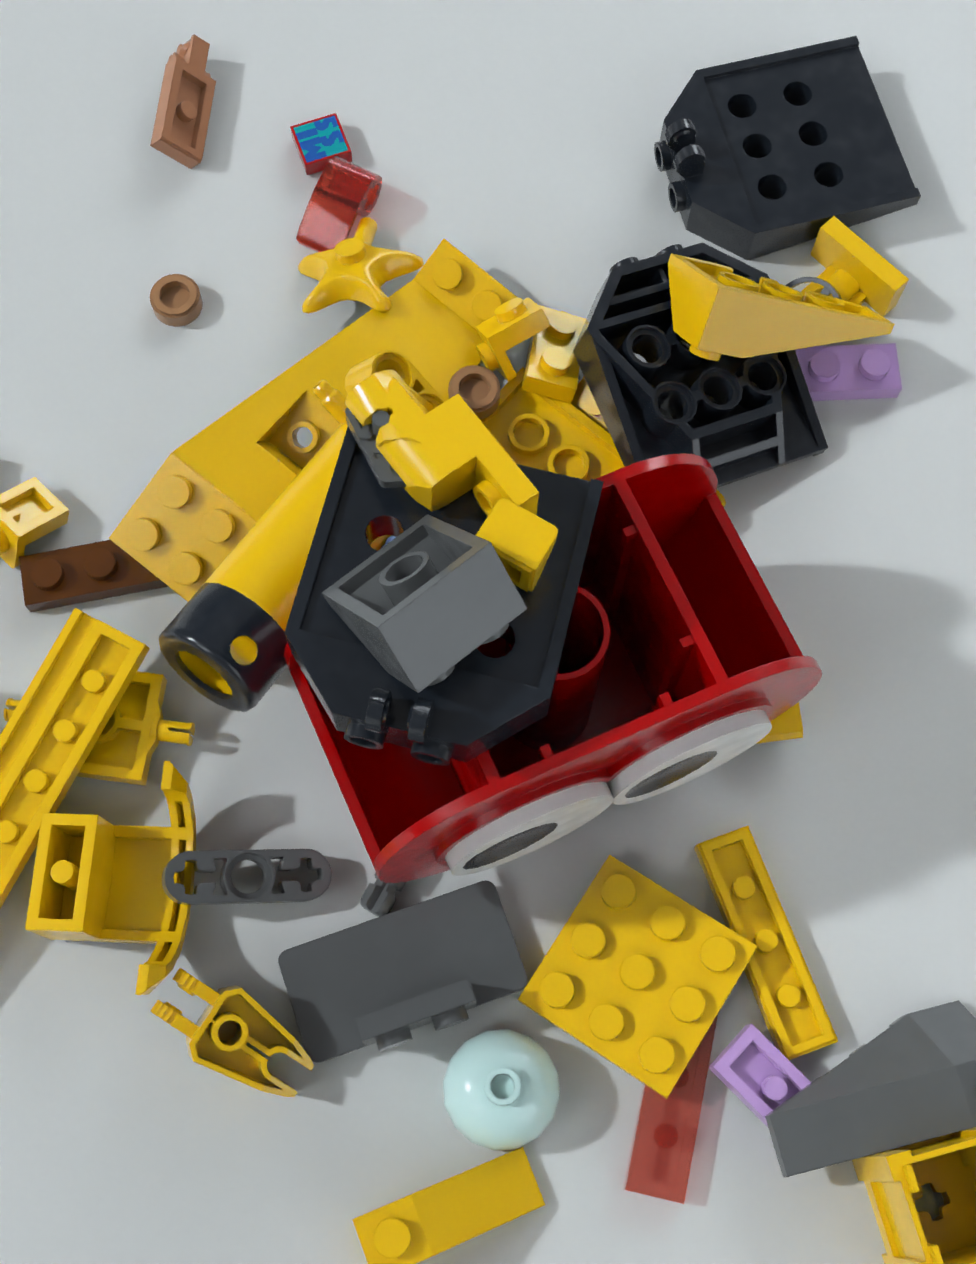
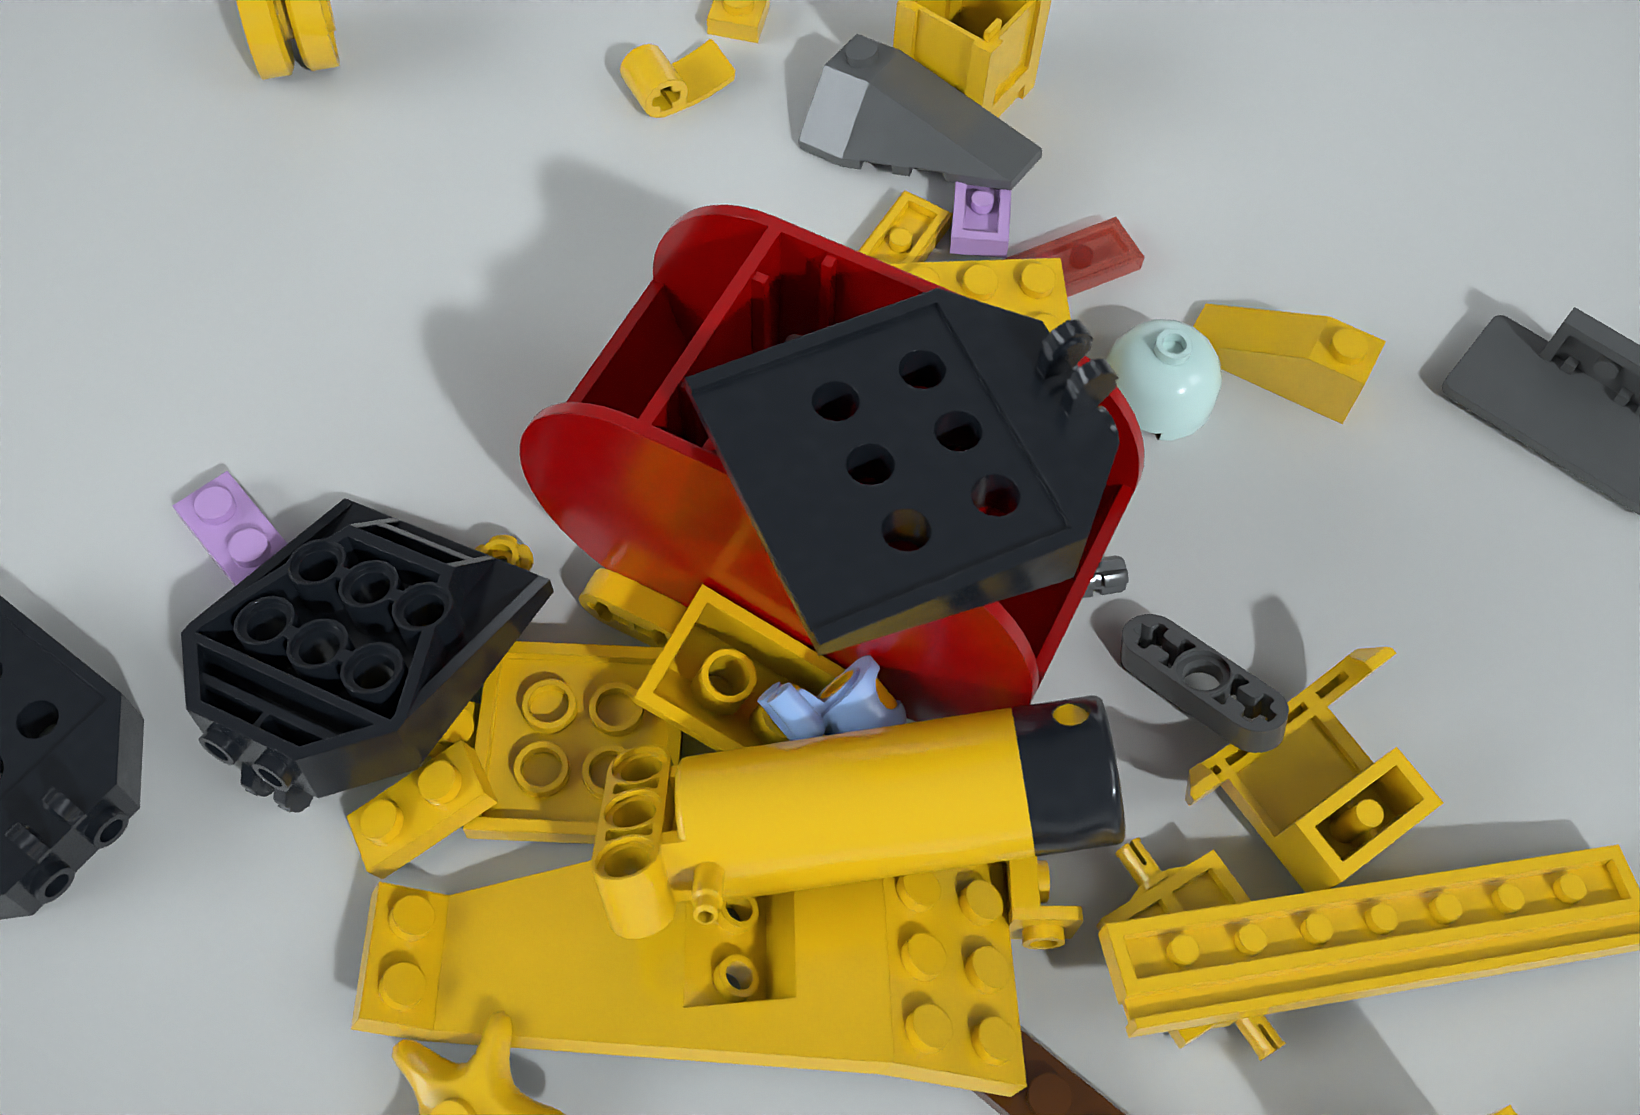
camera: 130 degrees left, 10 degrees down
(223, 1033) = (1329, 584): yellow hinge -> none
(402, 972) = (1185, 523): dark grey bracket -> none
(427, 601) = (956, 416): dark grey slope -> none
(432, 449) = (794, 519): yellow plate -> none
(478, 389) = (537, 847): medium nougat tile -> none
(511, 325) = (434, 857): yellow bracket -> none
(520, 541) = (839, 367): yellow slope -> none
(750, 319) = (254, 590): yellow wedge -> none
(853, 270) = (107, 598): yellow piece -> none

